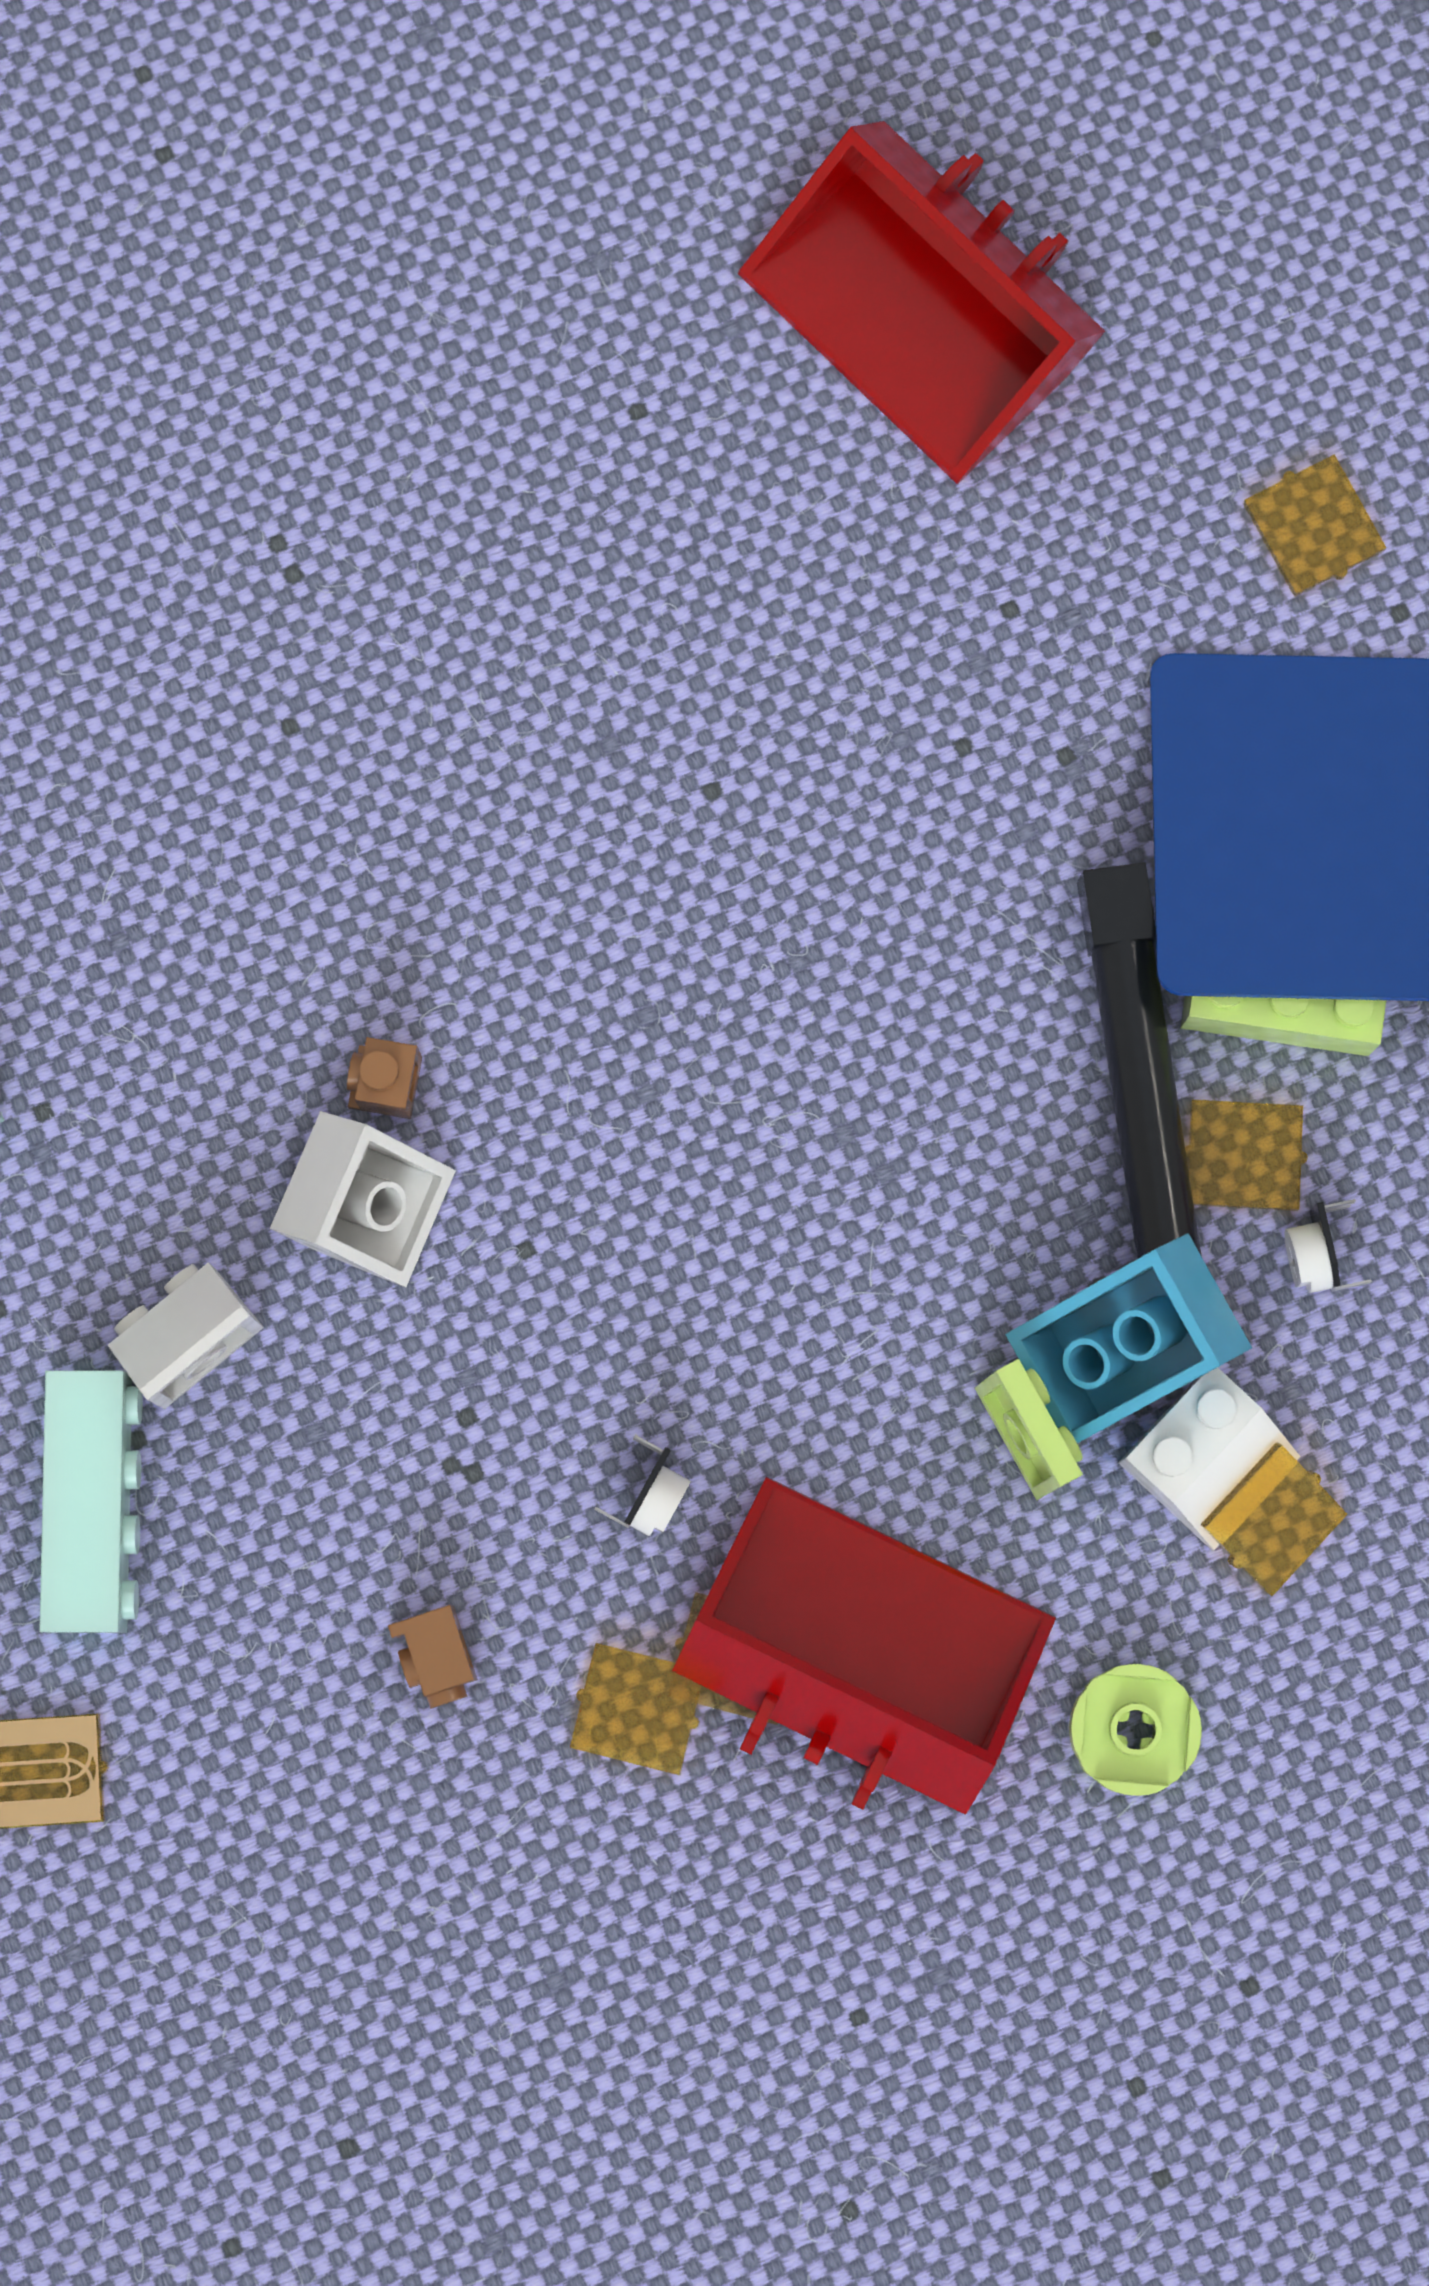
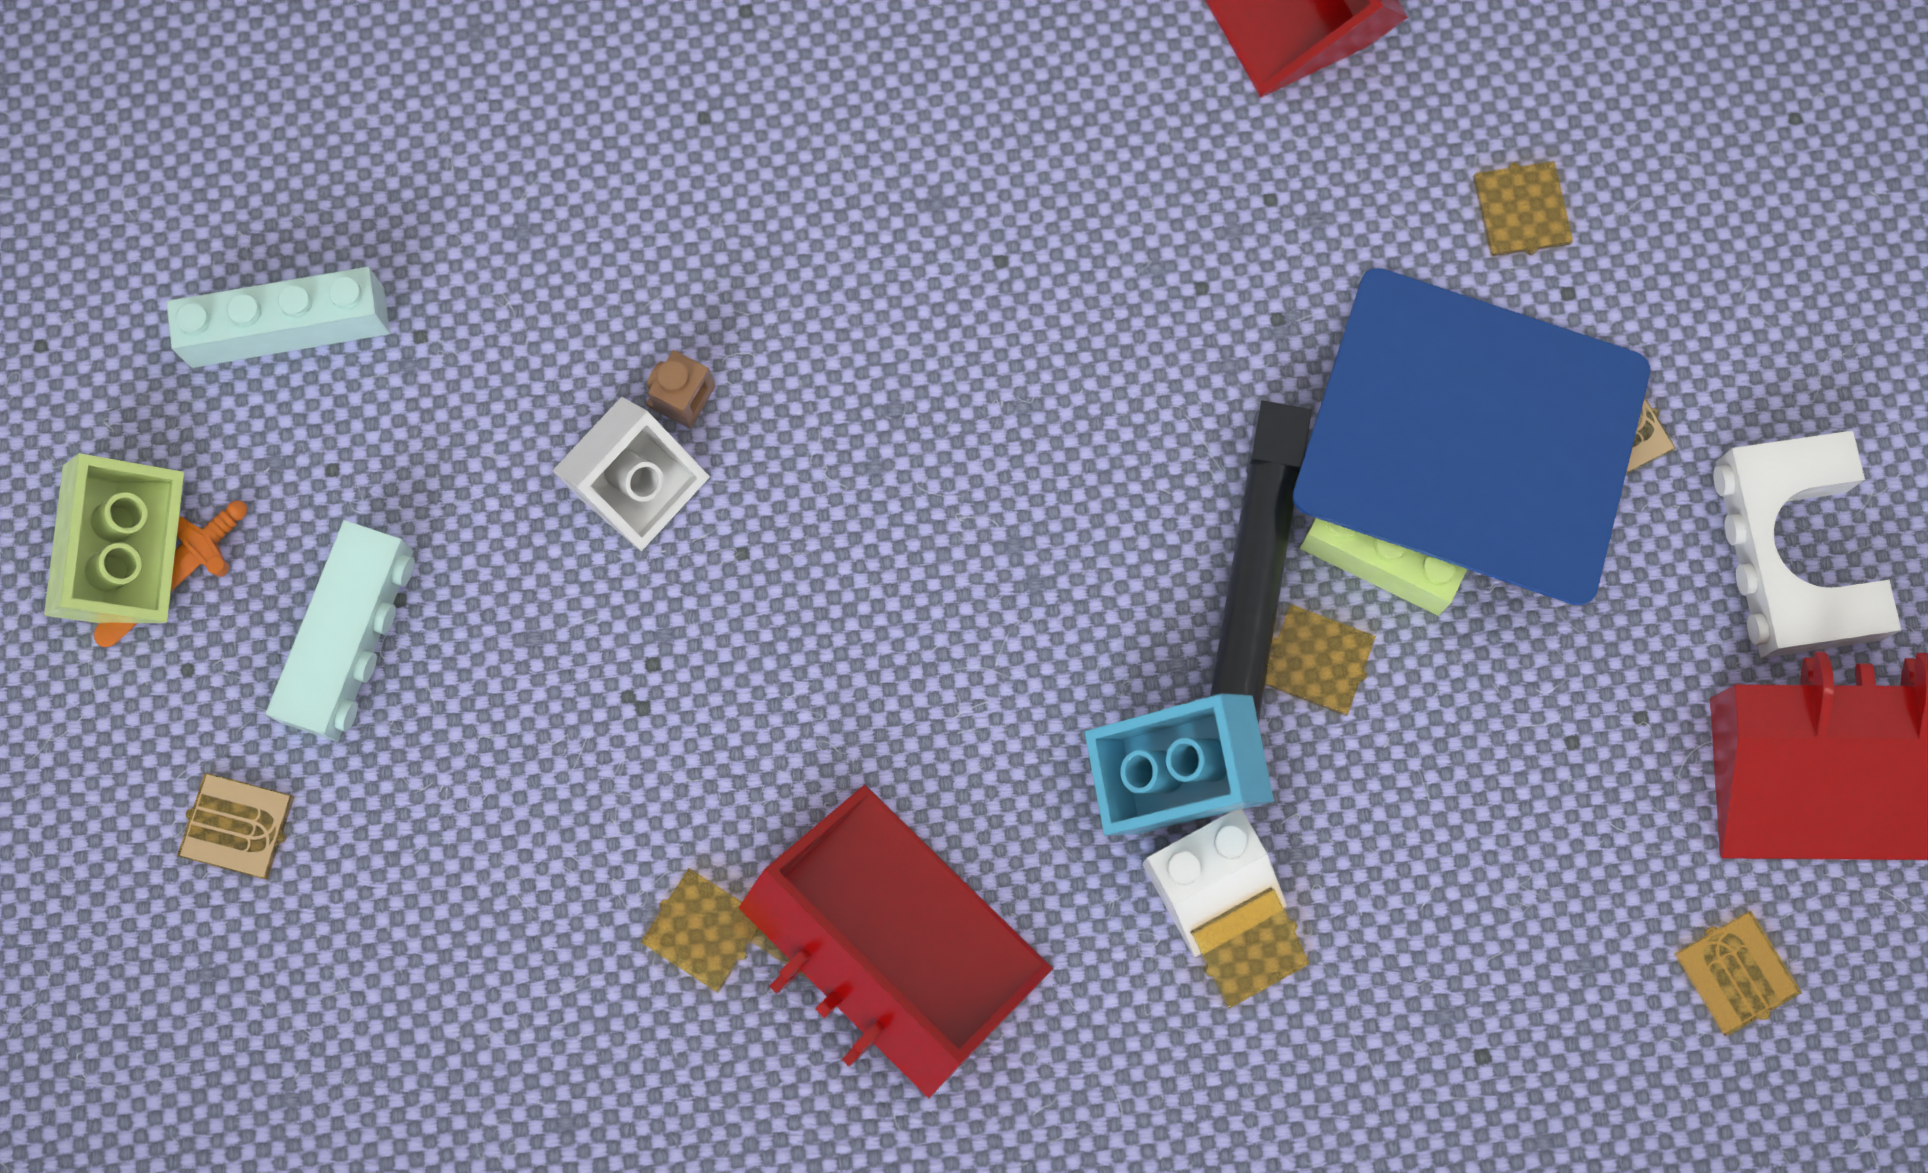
camera: 20 degrees right, 5 degrees down
(183, 1334) = (458, 530): white slope -> none
(435, 1655) = (561, 835): medium nougat brick -> none
(657, 1498) = (774, 769): white piece -> none
(1018, 1410) = (1081, 826): yellowish green plate -> none
(1158, 1759) = (1114, 1064): yellowish green plate -> none
(1313, 1252) = (1347, 749): white piece -> none

